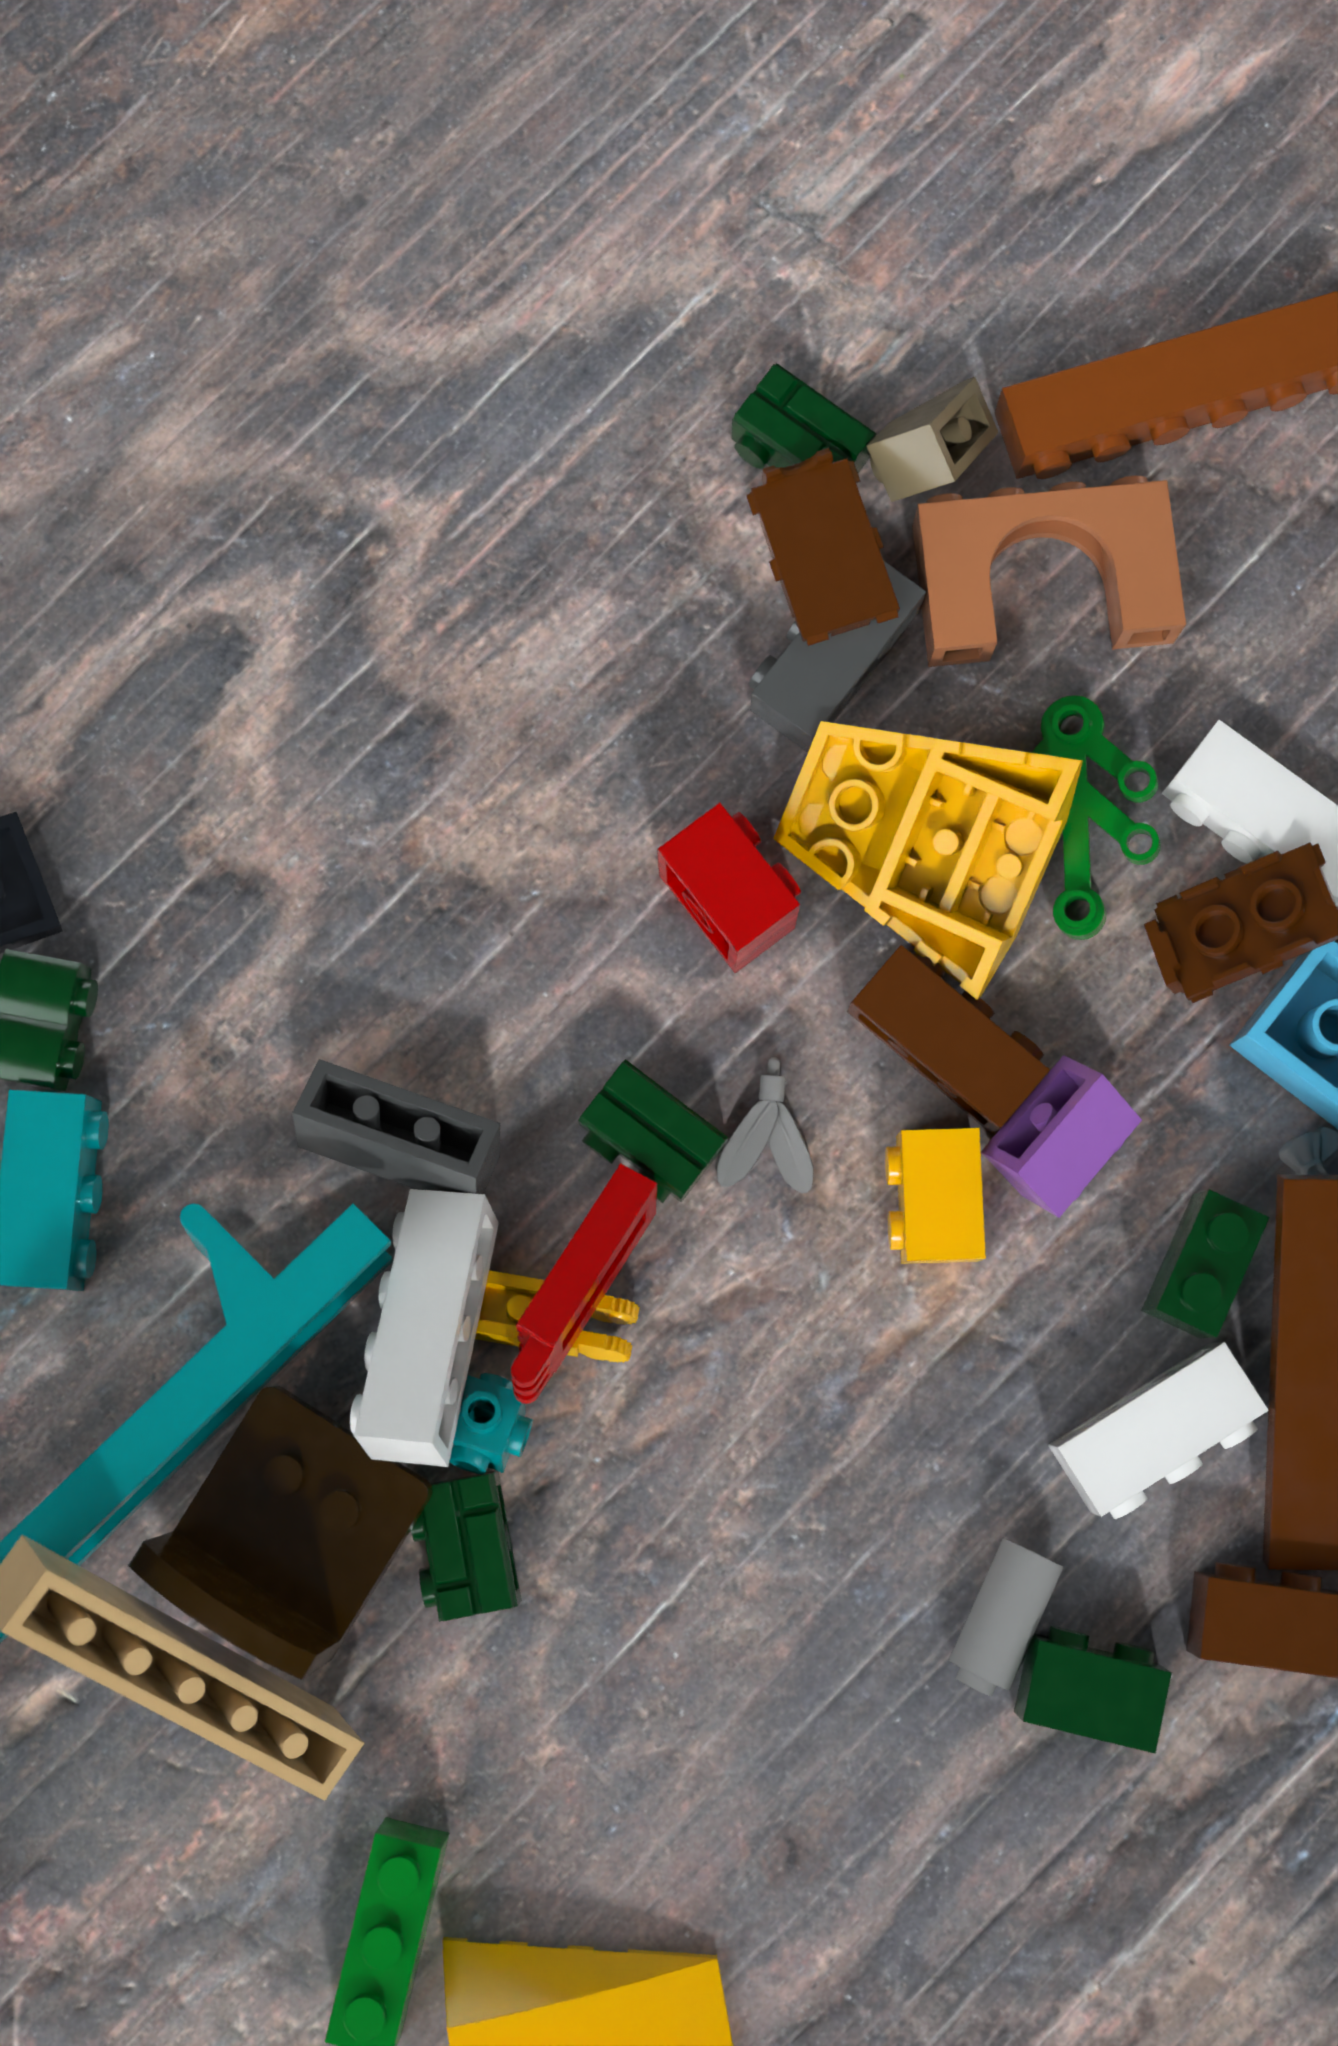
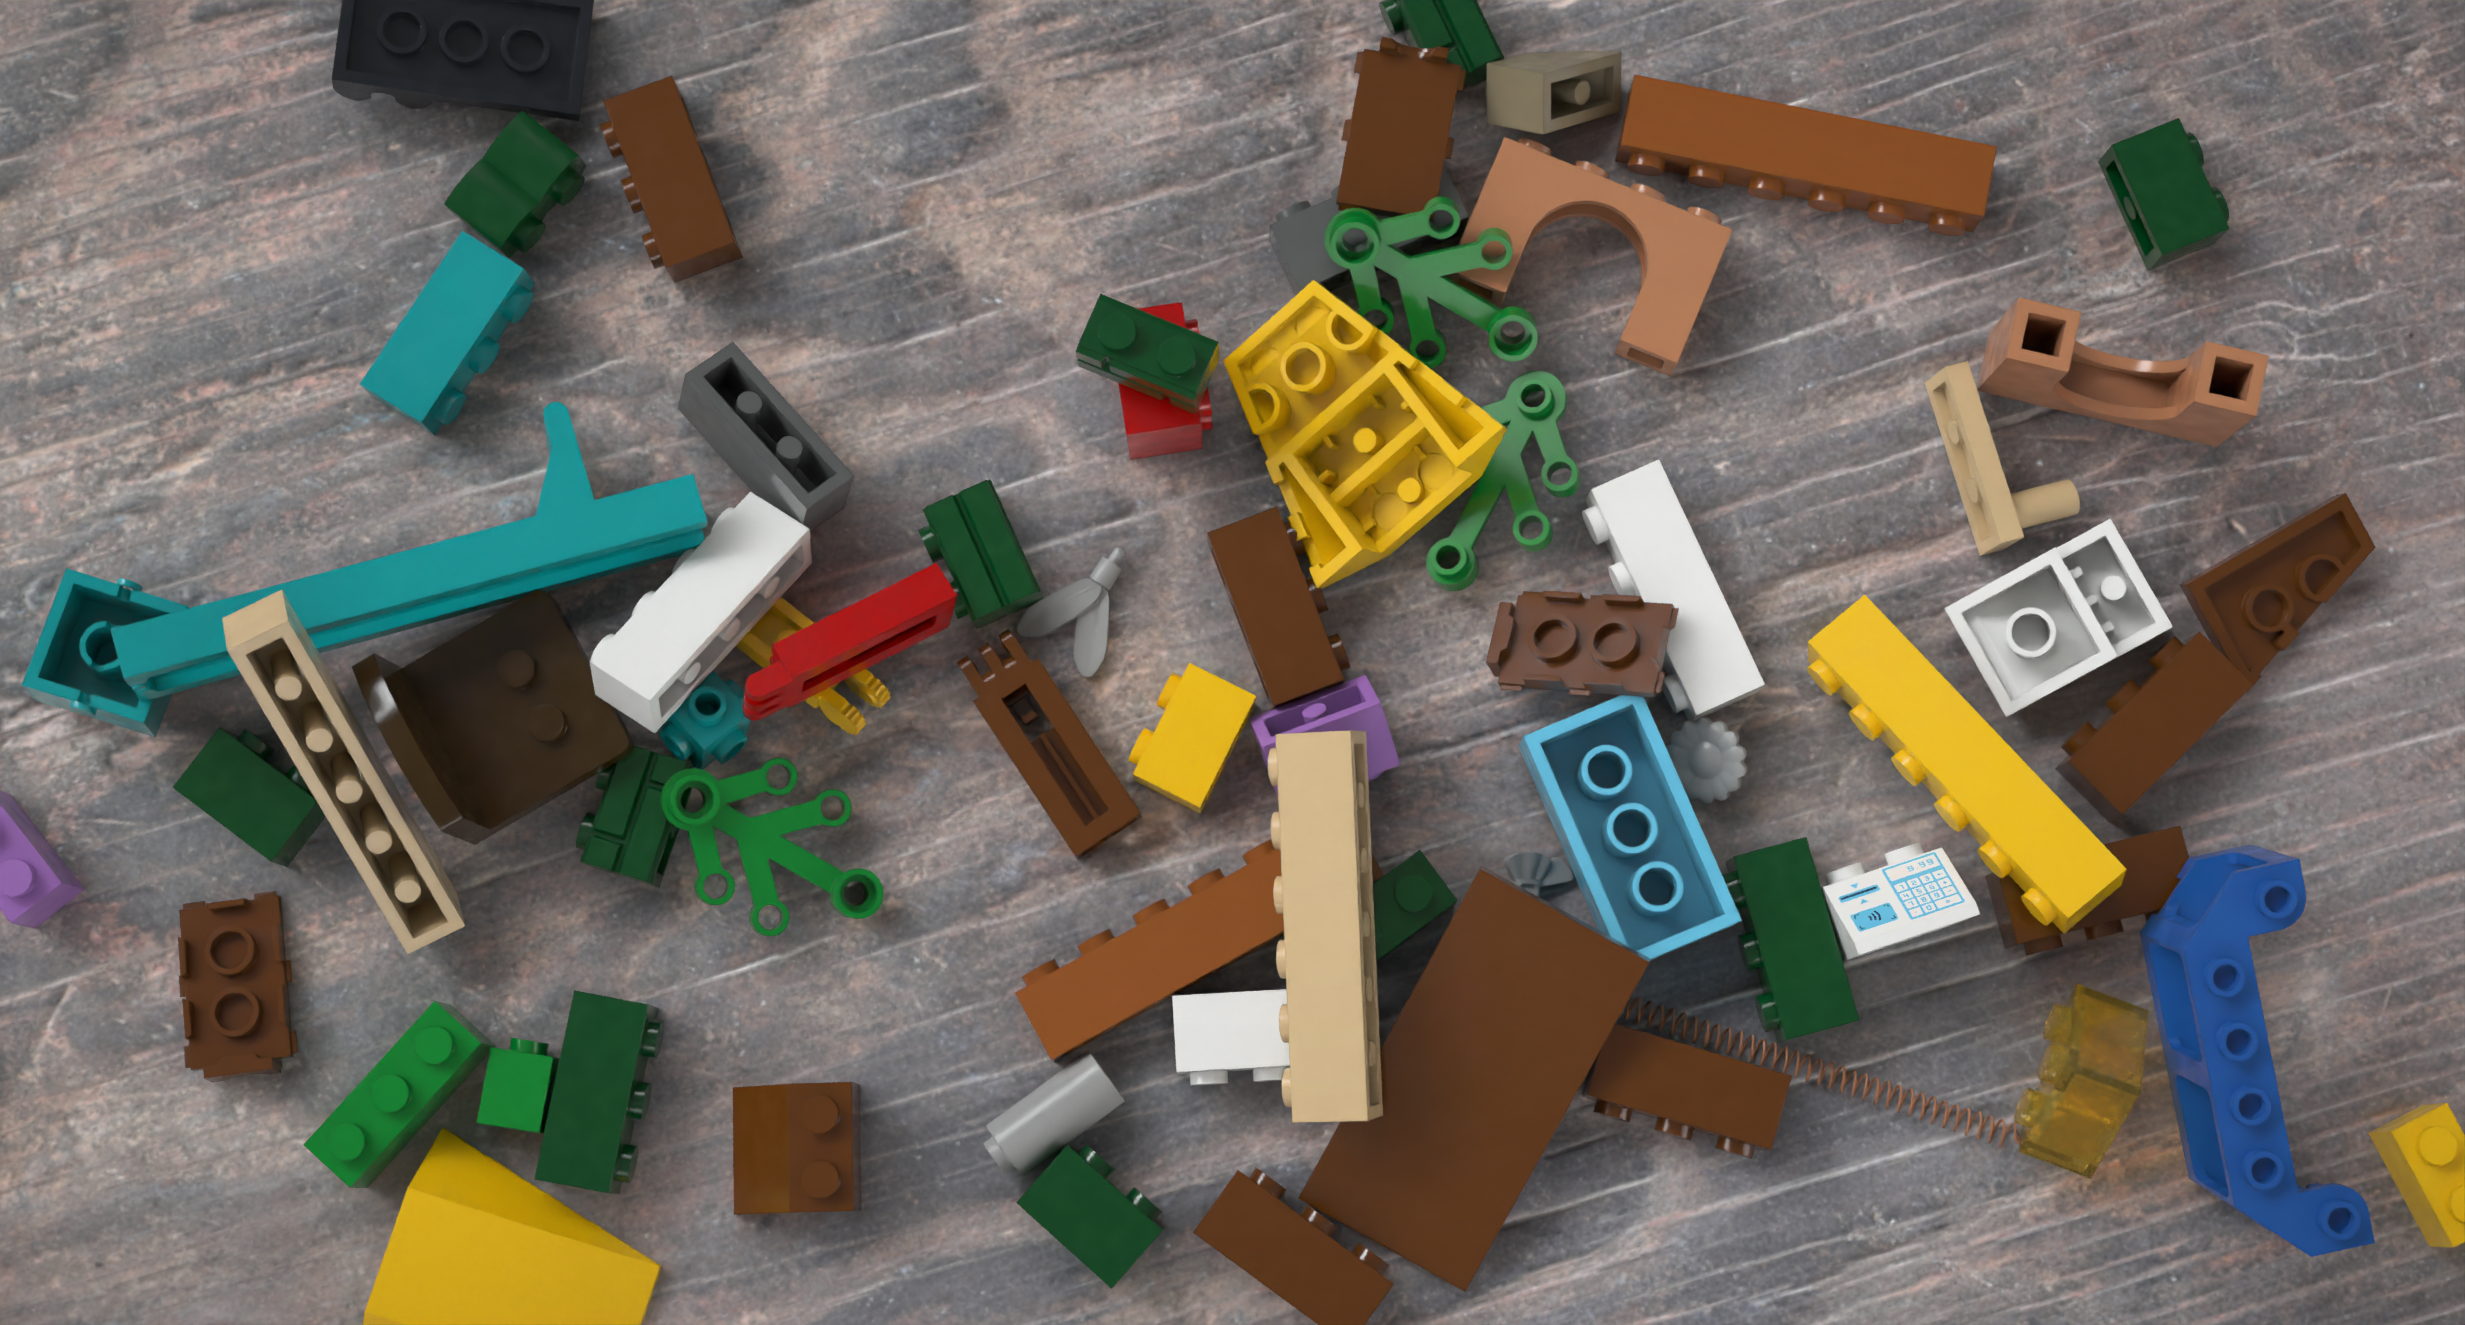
camera: 25 degrees right, 0 degrees up
(89, 1729) = (252, 795): none -> dark green brick
(174, 1915) = (235, 987): none -> reddish brown piece
(176, 941) = (669, 180): none -> reddish brown brick
(498, 1865) = (518, 1086): none -> green brick
(574, 1830) = (599, 1093): none -> dark green brick
(596, 1508) = (760, 840): none -> green plant
(722, 865) = (1147, 353): none -> dark green brick
(786, 1780) = (797, 1148): none -> reddish brown slope
(828, 1283) = (1060, 765): none -> reddish brown hinge
(918, 665) = (1424, 277): none -> green plant
(1045, 1375) = (1157, 957): none -> dark orange brick
(1176, 1309) = (1327, 926): none -> tan brick

